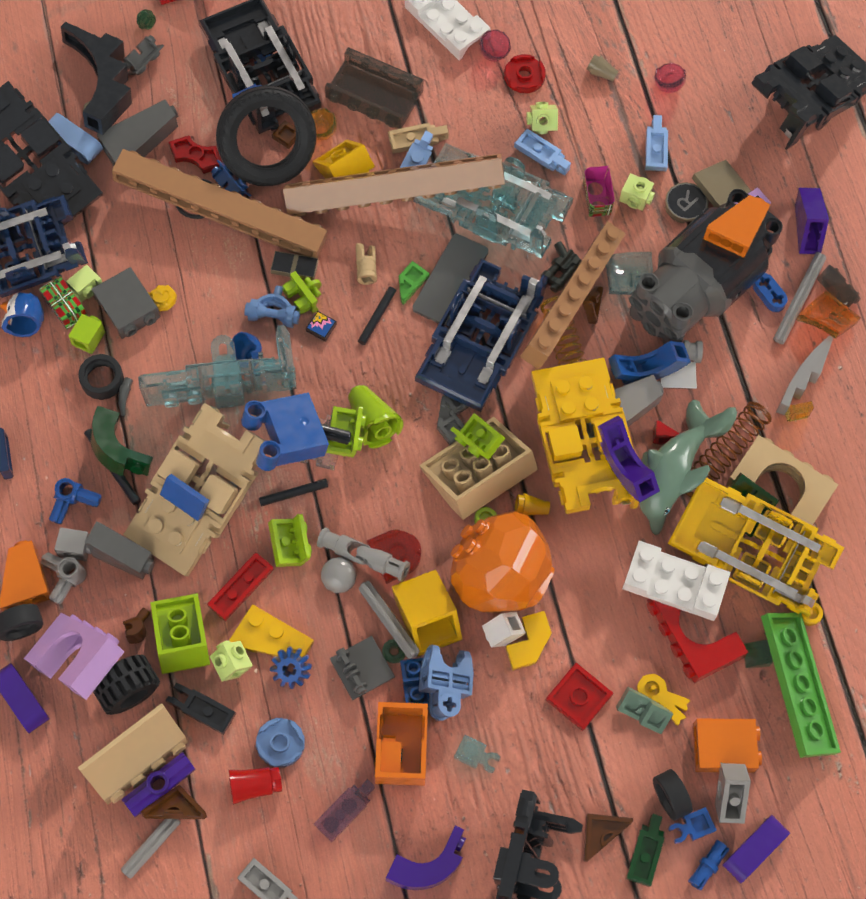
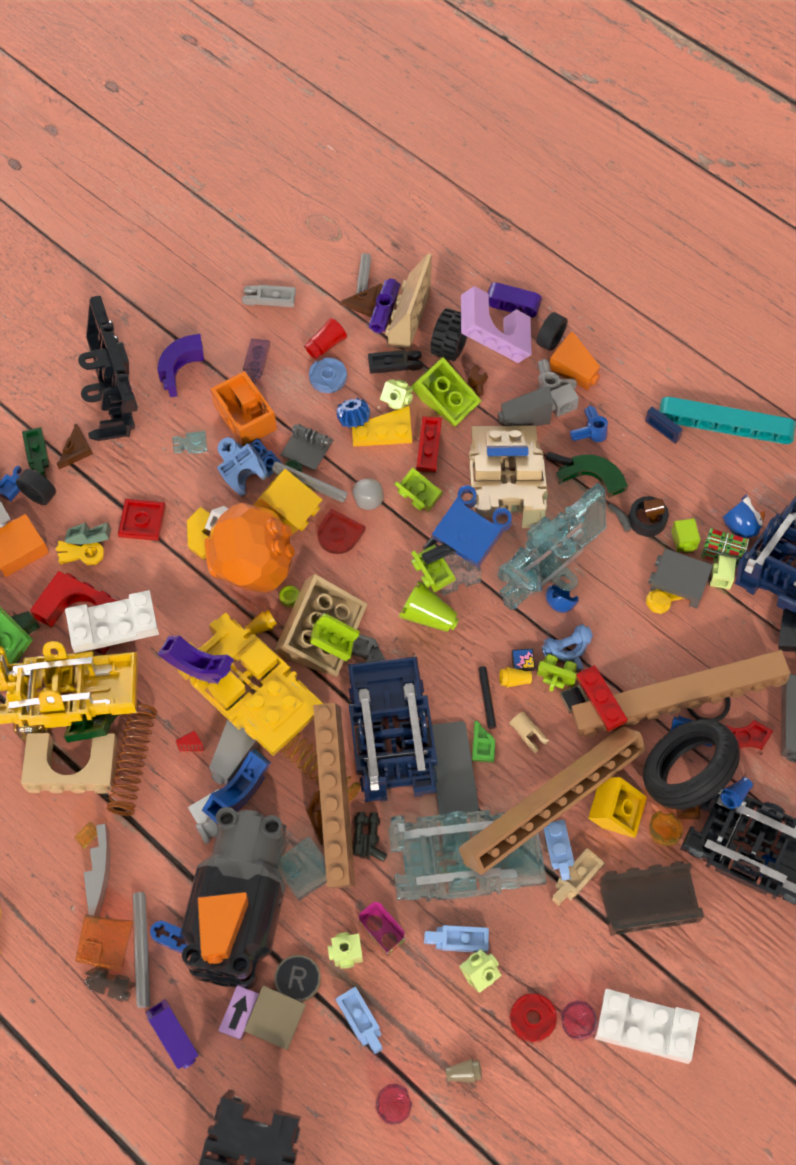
camera: 150 degrees right, 5 degrees down
(94, 368) = (653, 508): none -> reddish brown piece
(289, 237) = (601, 698): none -> red plate
(343, 314) = (514, 677): none -> yellow cone
(374, 558) = (351, 510): light grey piece -> none
(675, 458) = (167, 706): sand green animal -> none

